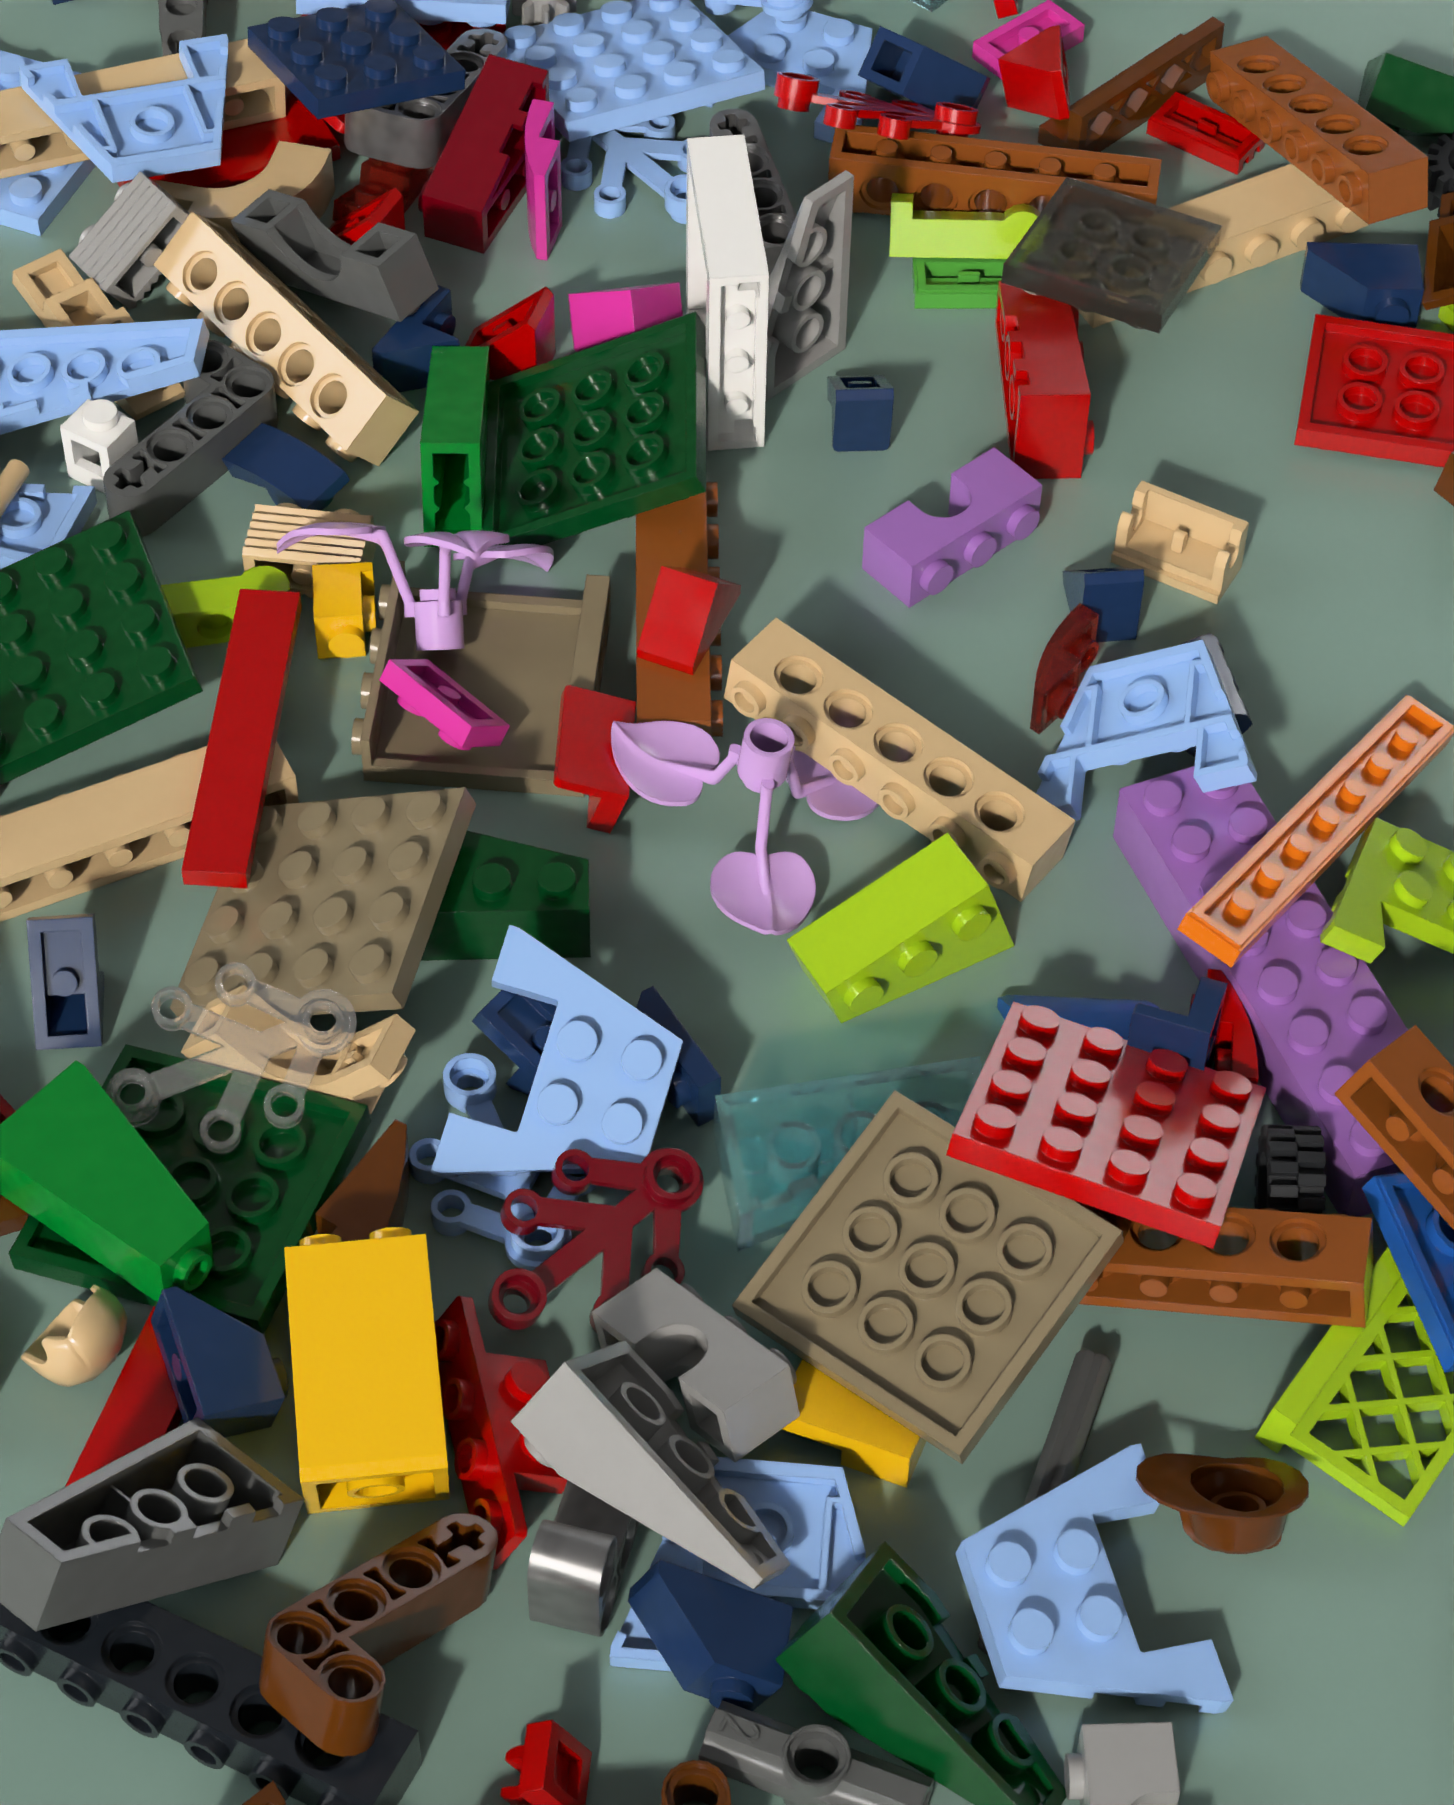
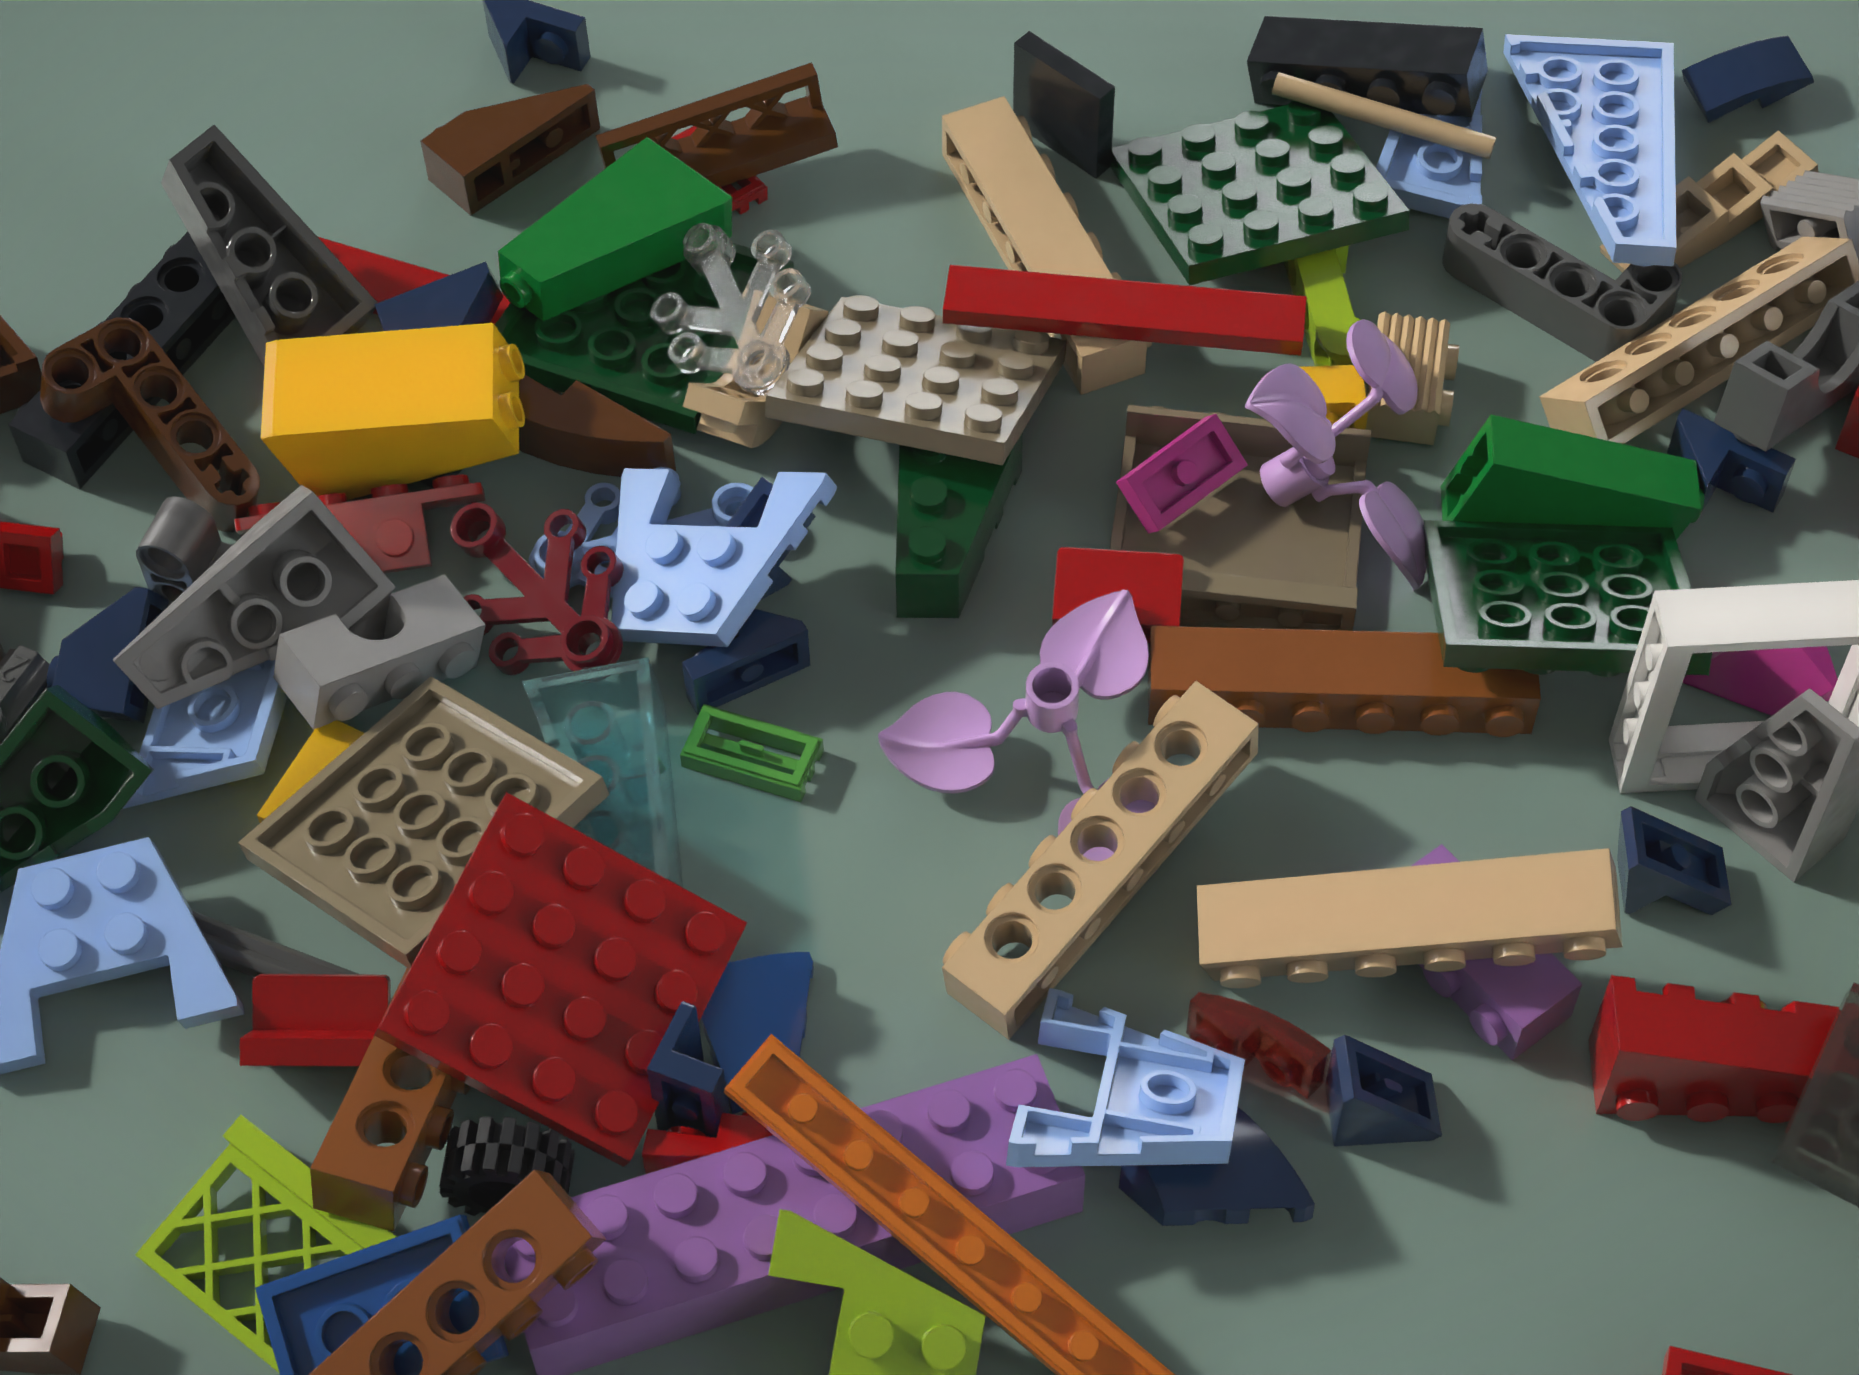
camera: 95 degrees right, 5 degrees up
(65, 981) = (865, 220): dark blue slope -> none
(80, 1340) = (478, 237): tan hair -> none
(94, 434) = (1542, 204): white brick -> none
(286, 468) = (1519, 358): dark blue slope -> none
(519, 335) = (1731, 551): red slope -> none
(685, 617) = (1290, 661): red slope -> none
(787, 1014) = (747, 761): none -> bright green tile
(902, 932) = (876, 859): lime wedge -> none
(959, 539) = (1410, 918): none -> tan brick
(1147, 1379) = (314, 1019): none -> red panel
(1180, 542) = (1462, 1192): tan hinge -> none
(1226, 1502) = (169, 1063): reddish brown piece -> none

